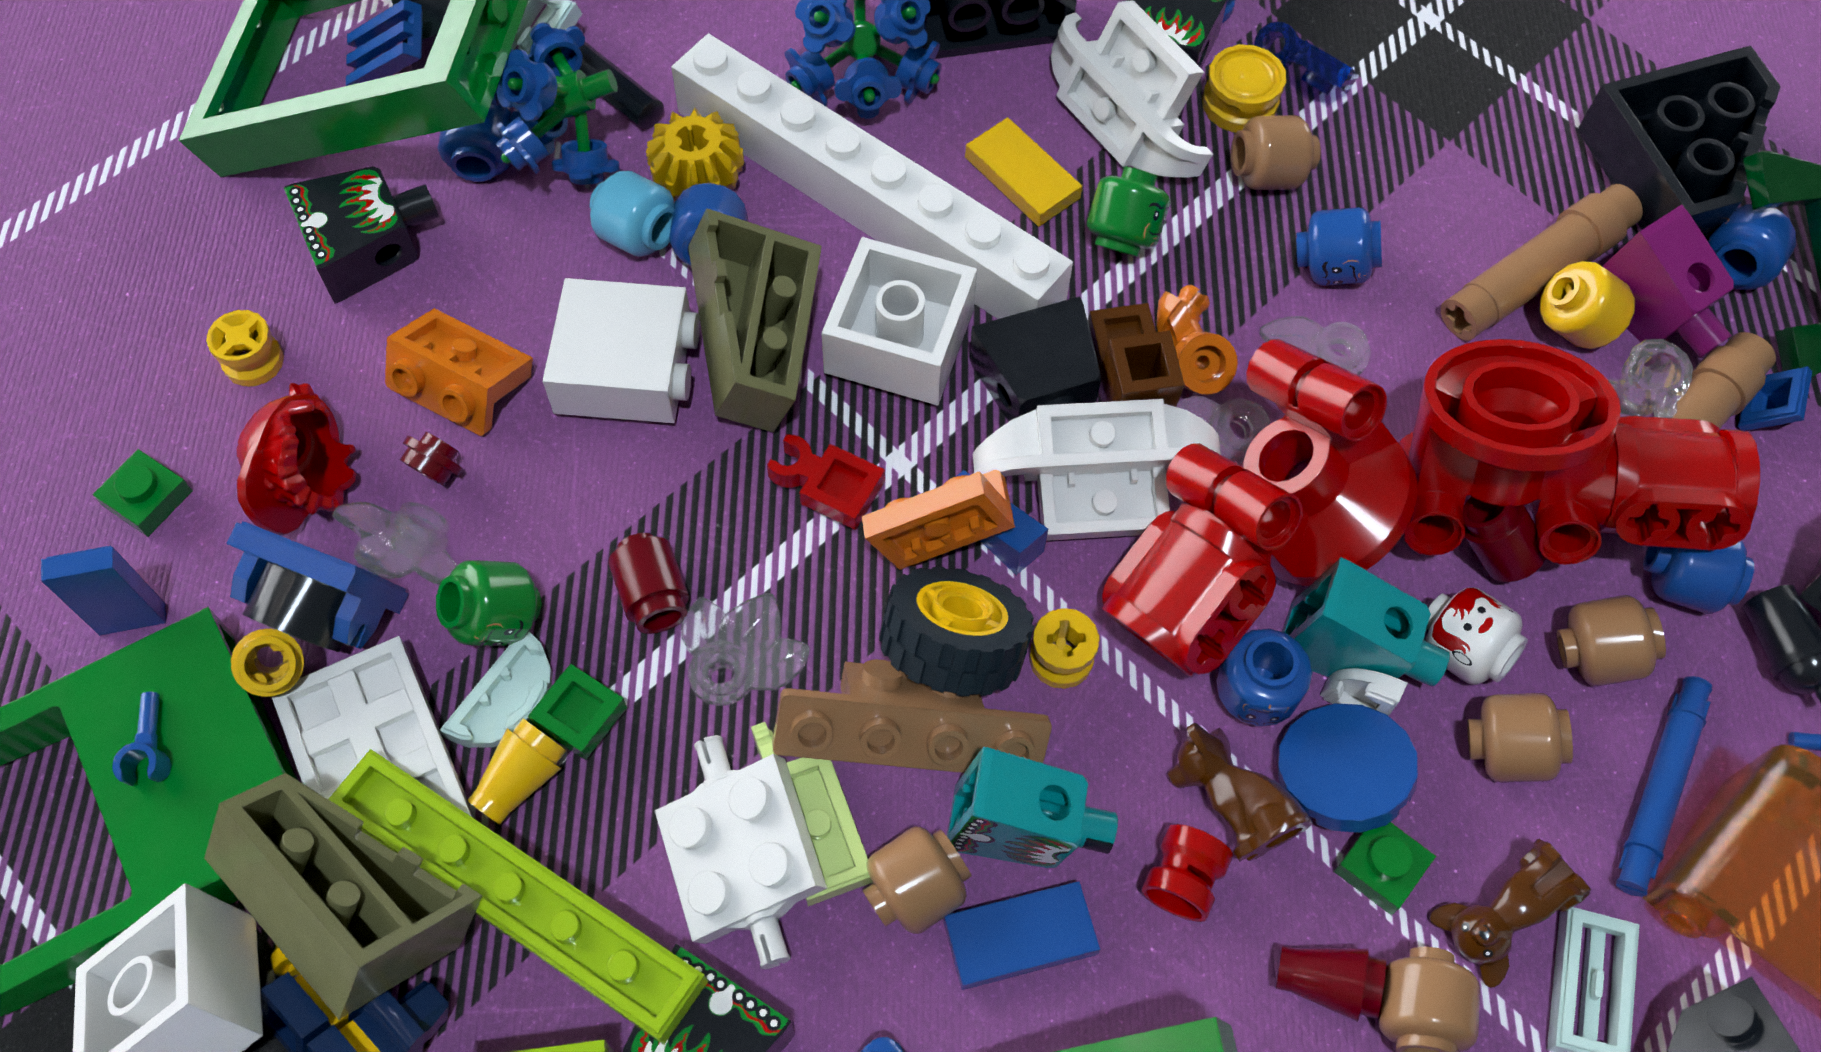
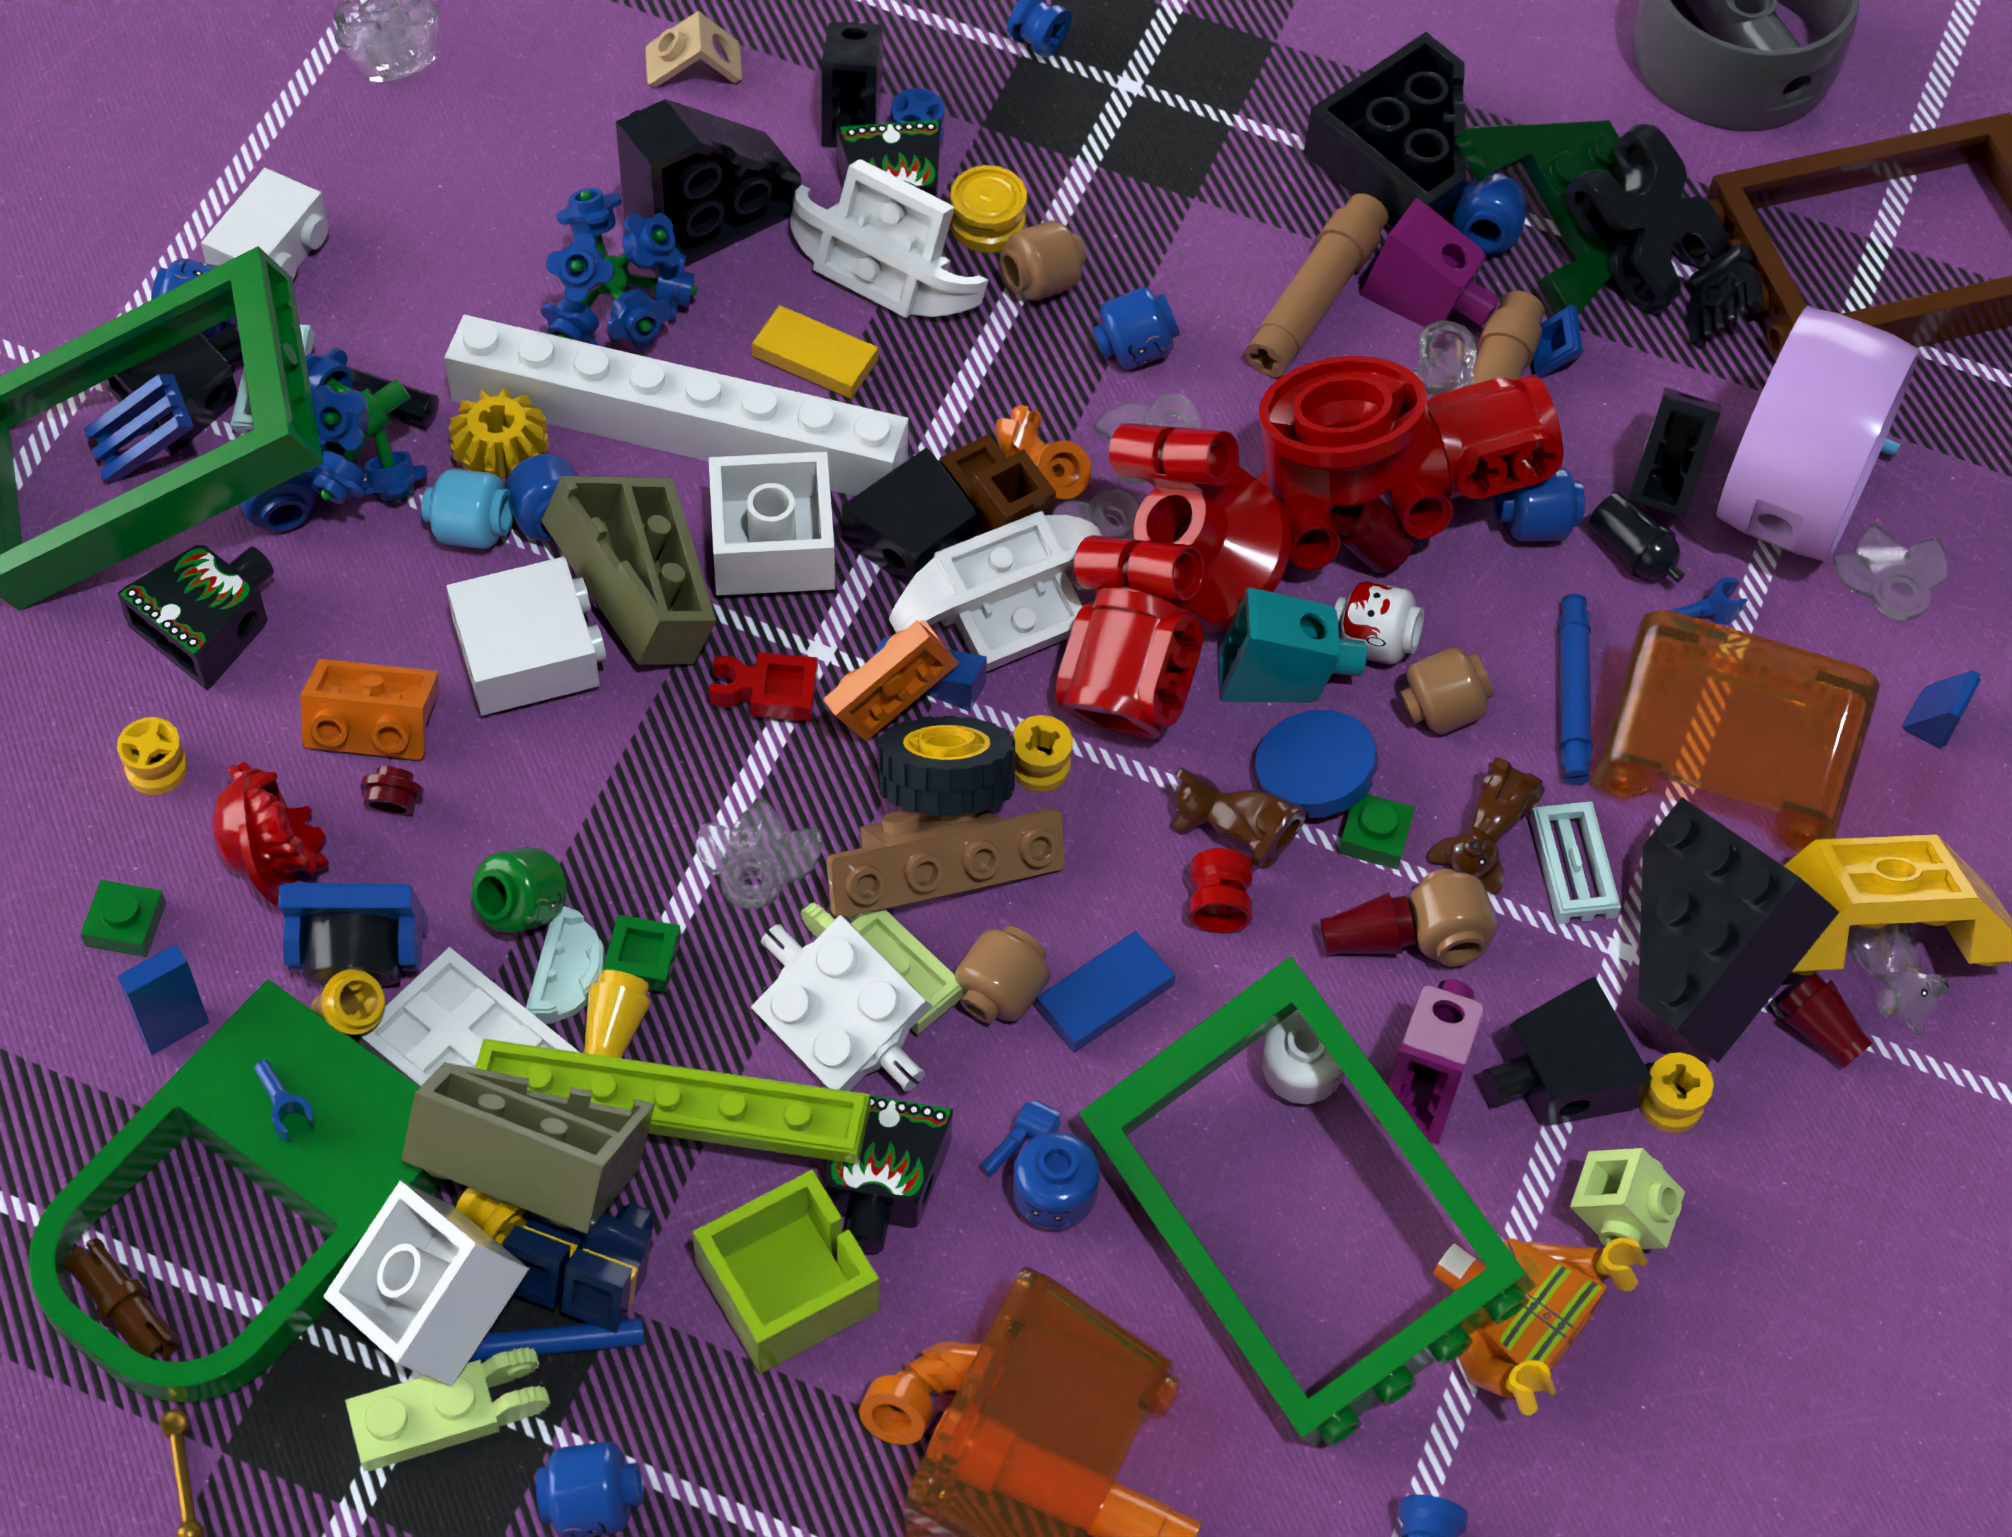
camera: 25 degrees left, 5 degrees down
(399, 540) = (410, 861): clear plate -> none
(649, 582) = (652, 825): dark red brick -> none
(1025, 812) = (1068, 887): teal torso -> none
(1128, 212) = (934, 358): green head -> none
(1264, 677) = (1221, 715): blue head -> none
(1322, 69) = (1052, 168): clear blue plate -> none
(1364, 688) = (1306, 694): white tile -> none
(1587, 305) = (1369, 311): yellow head -> none
(1612, 640) = (1491, 587): medium nougat head -> none

